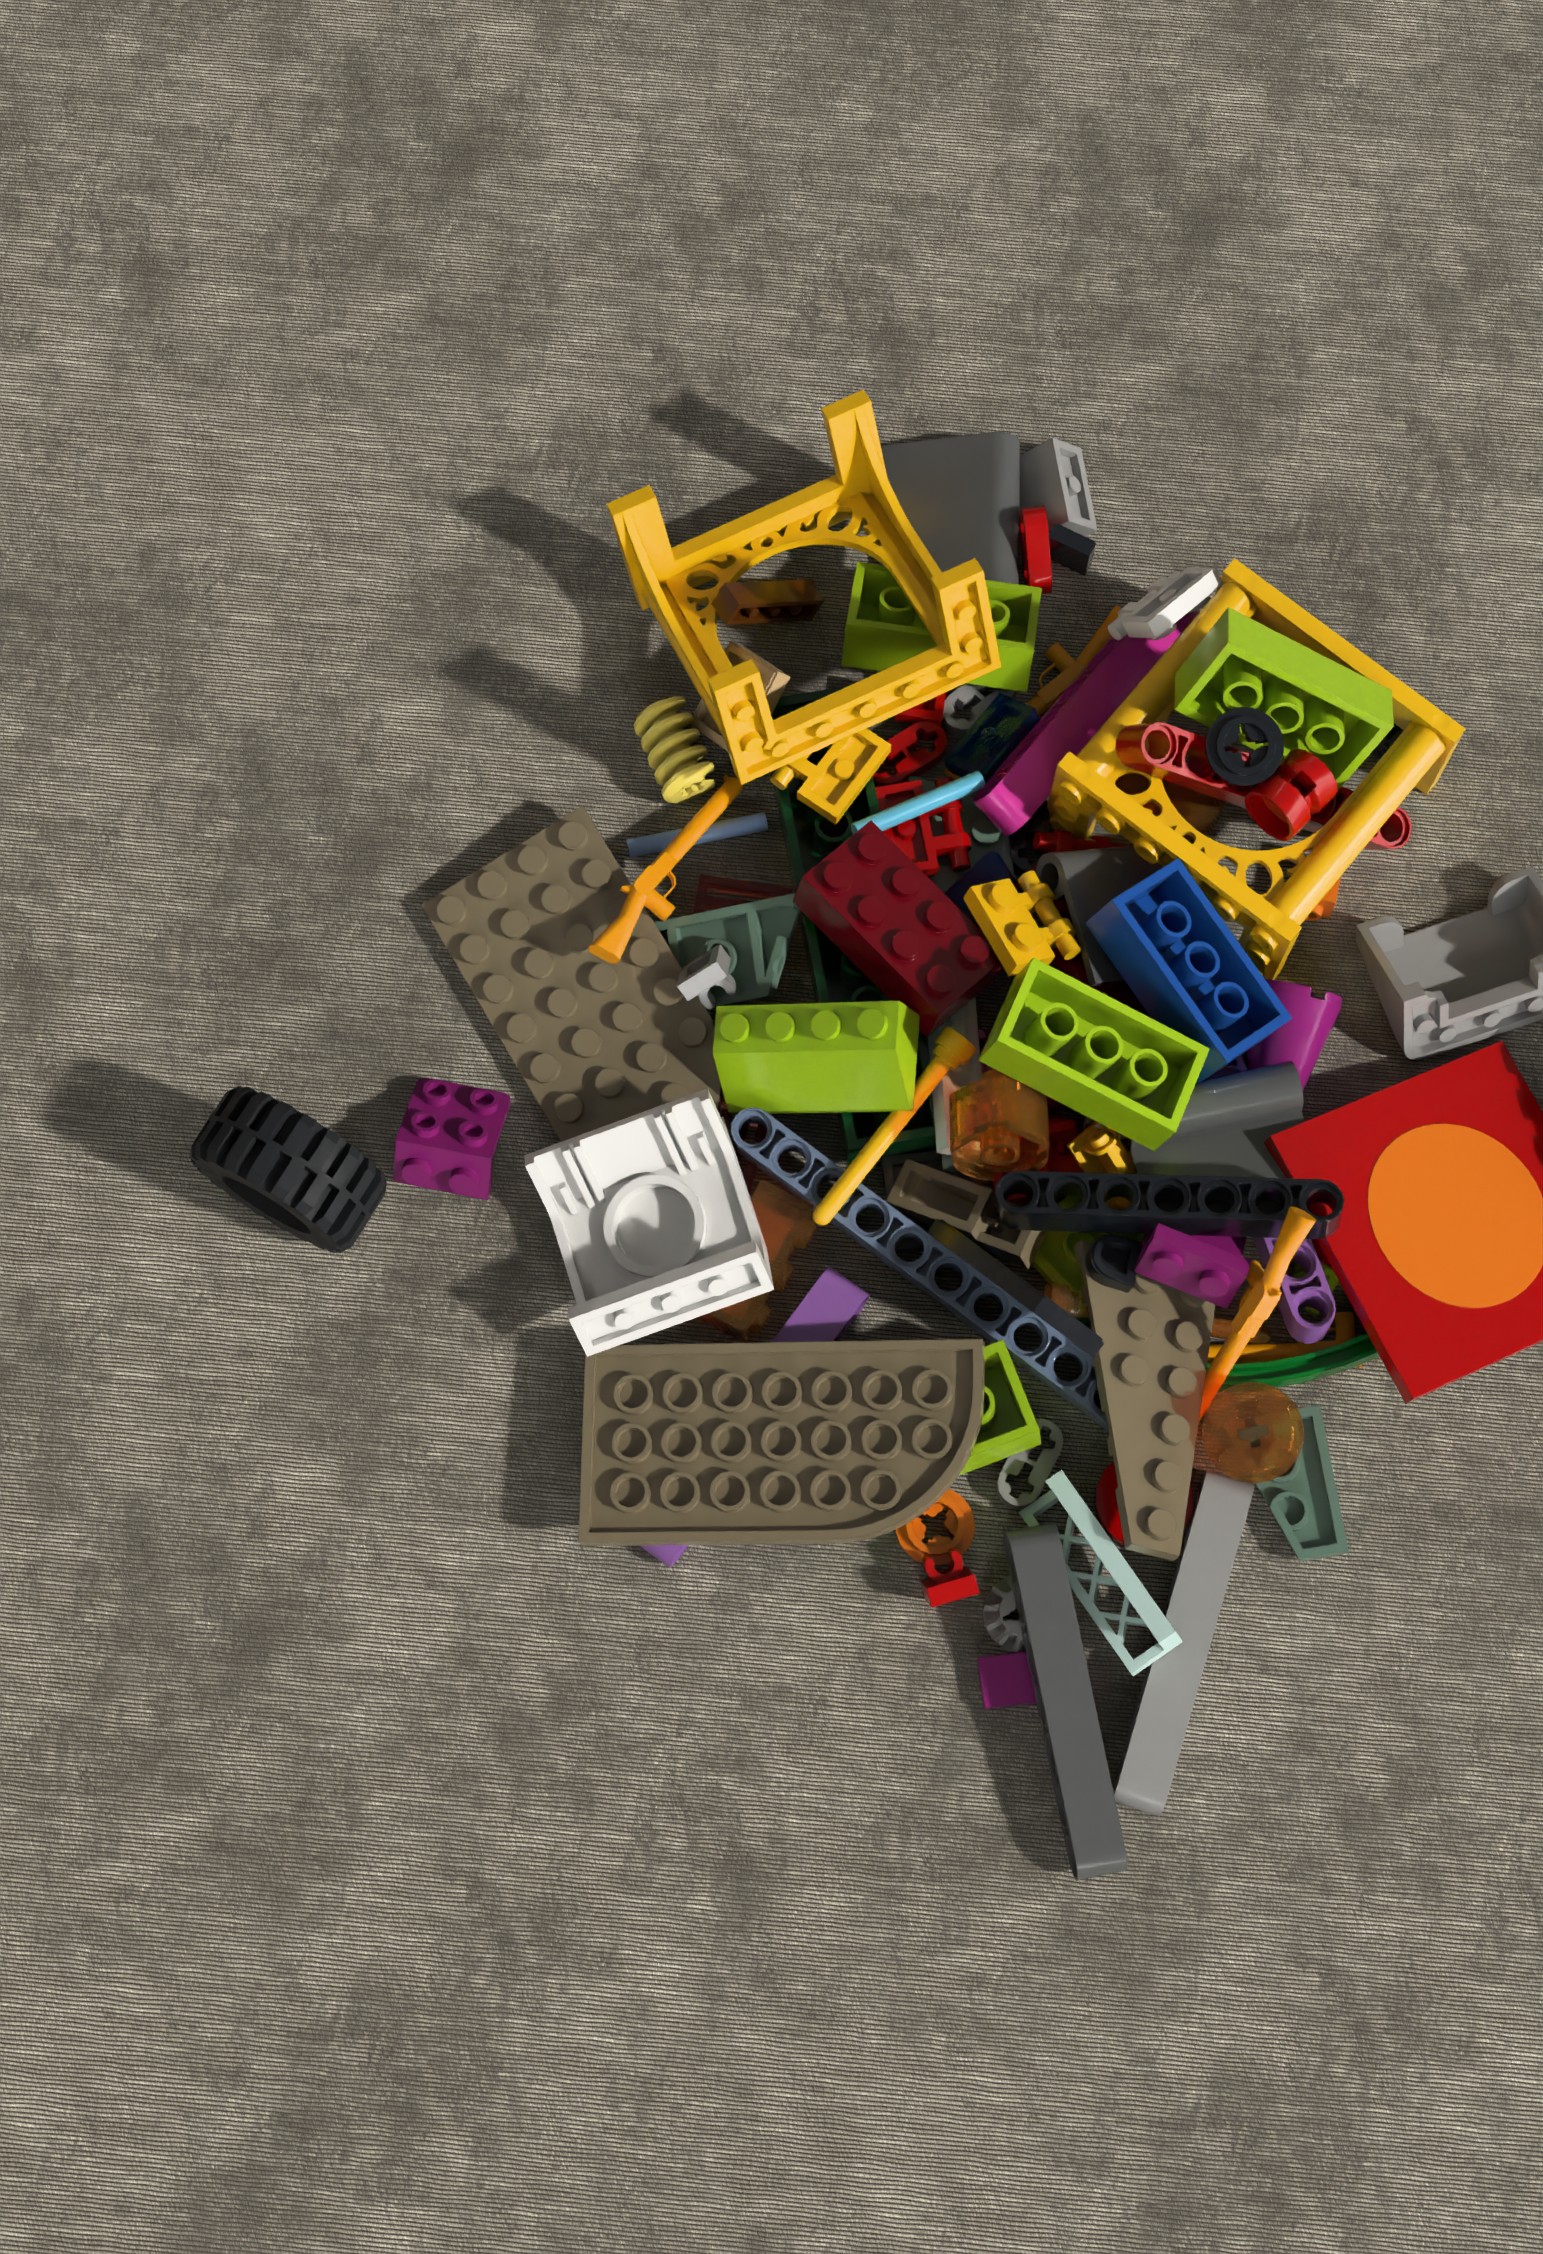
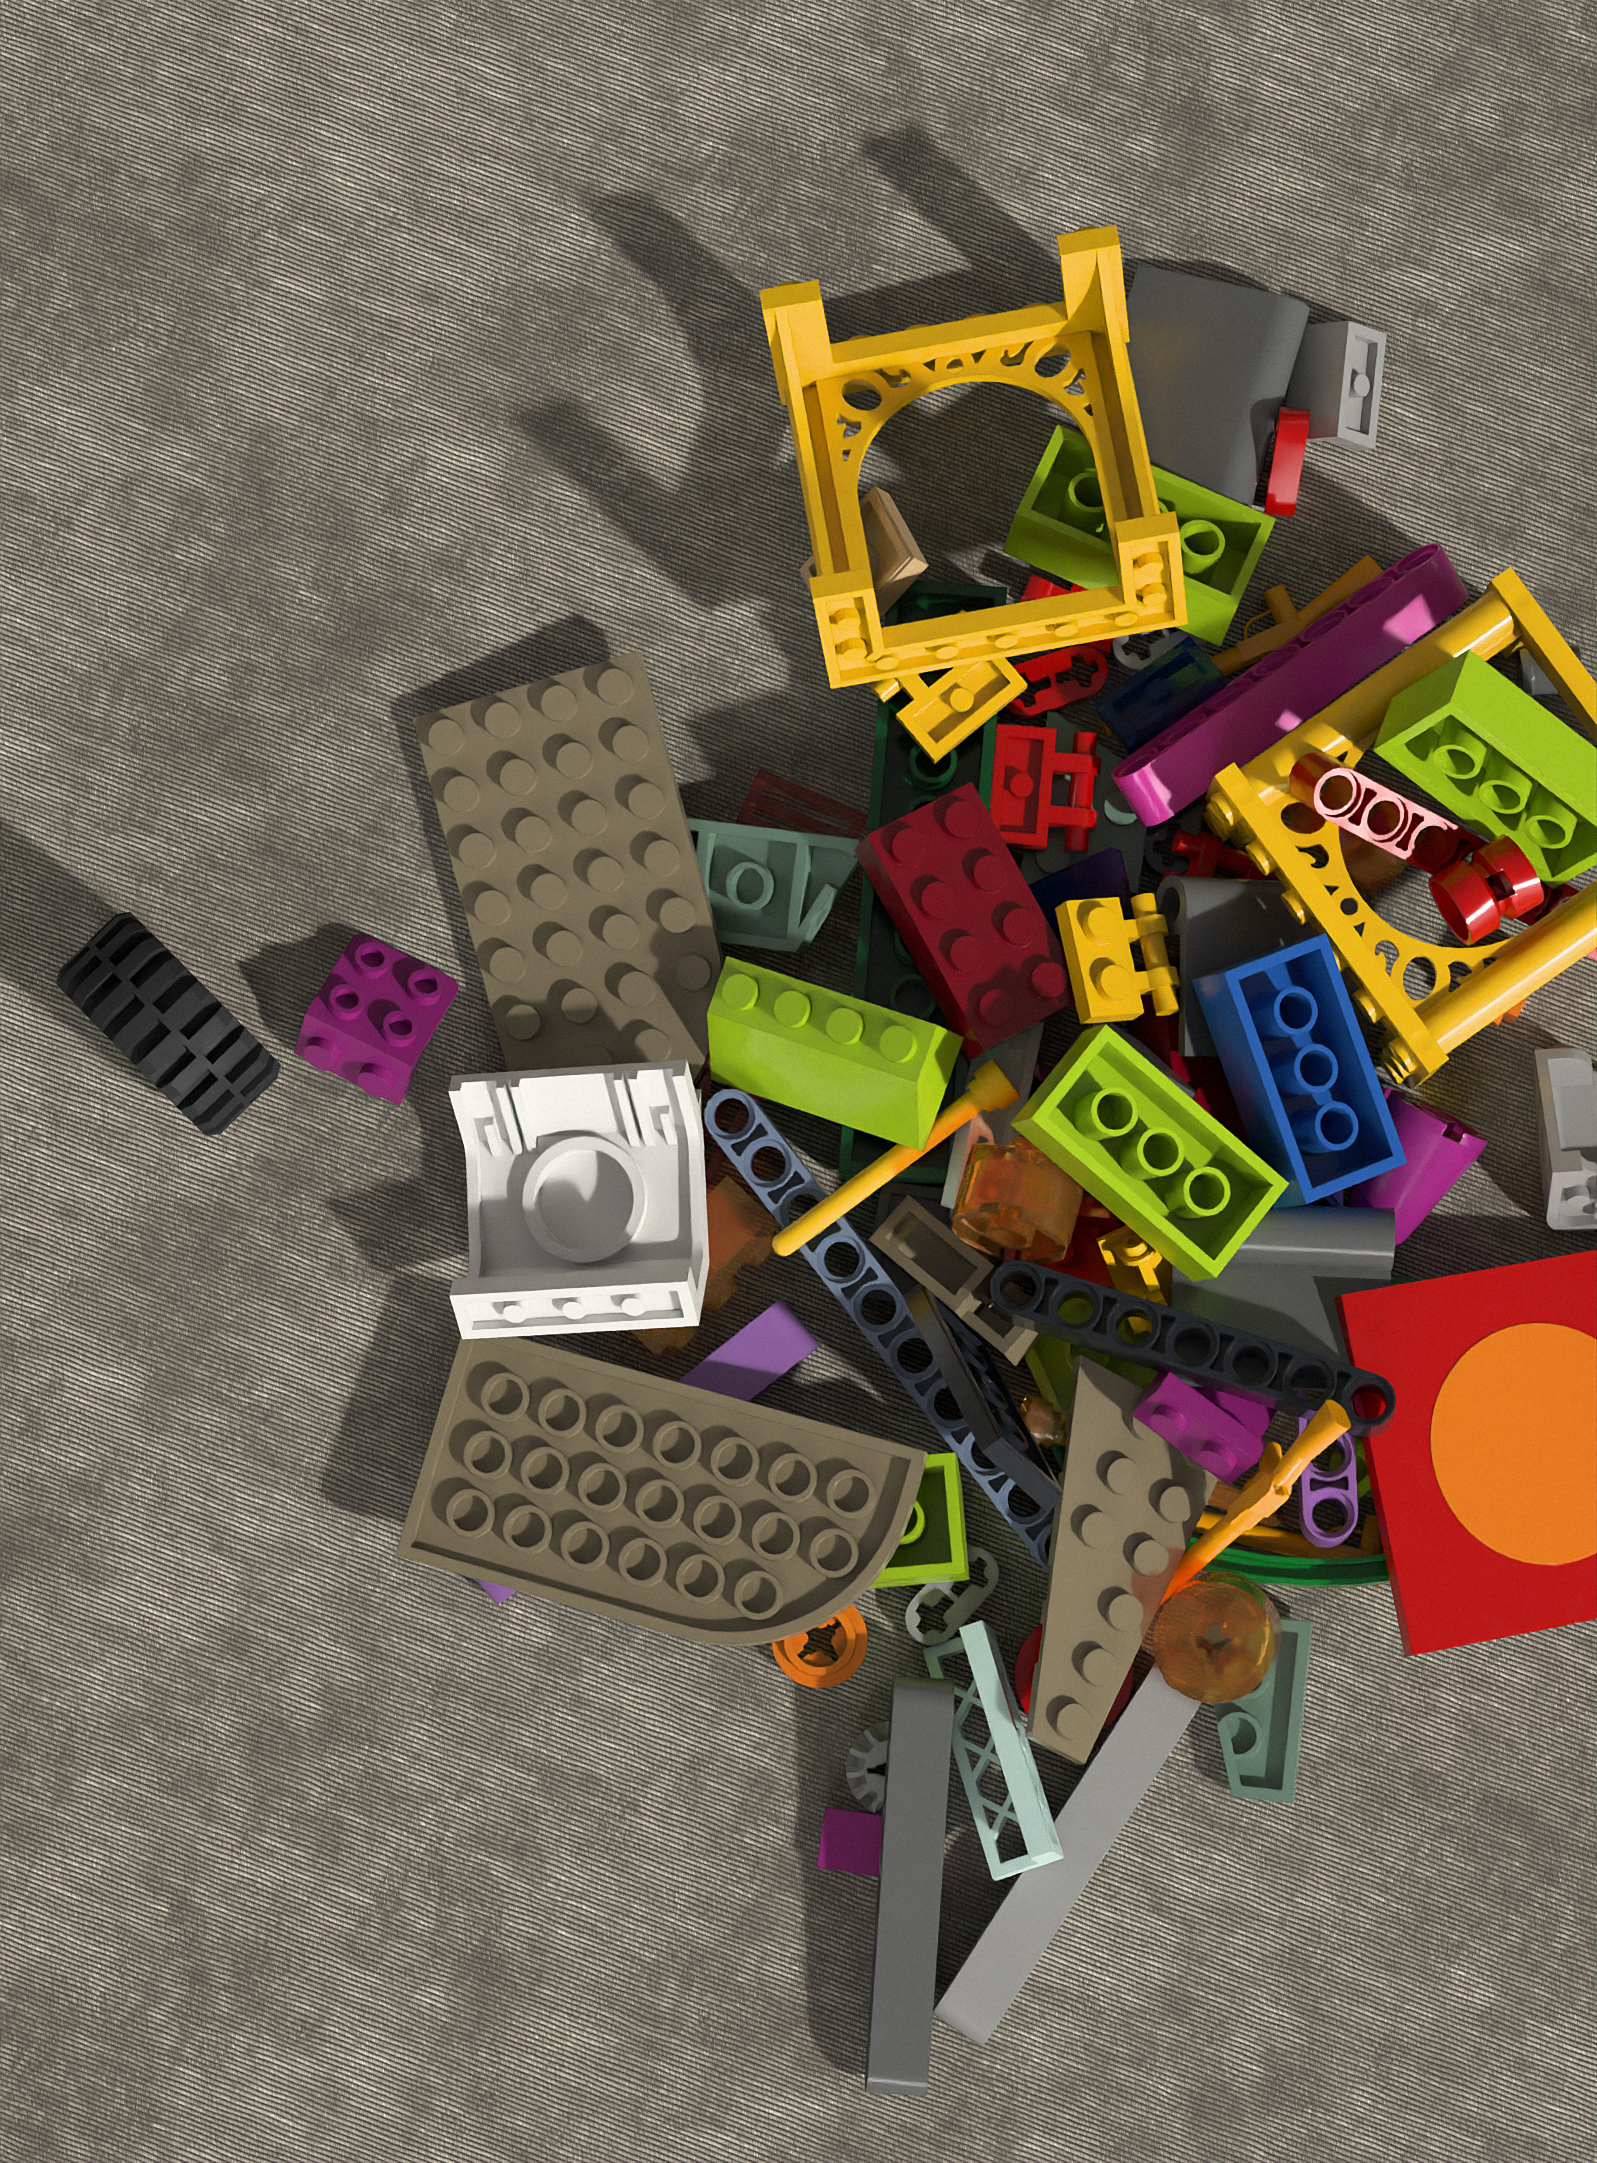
camera: 20 degrees right, 10 degrees up
(613, 940) = (678, 784): light orange piece -> none
(672, 752) = (768, 603): light yellow piece -> none
(705, 972) = (728, 906): light grey tile -> none
(717, 831) = (770, 715): light blue bar -> none
(767, 601) = (934, 446): reddish brown piece -> none
(924, 802) = (1043, 764): medium azure bar -> none
(947, 1585) = (814, 1715): red tile -> none
(1071, 549) = (1332, 468): black tile -> none
(1113, 1261) = (1112, 1392): black tile -> none
(1165, 604) = (1415, 593): white plate -> none
(1257, 728) = (1461, 843): black gear -> none

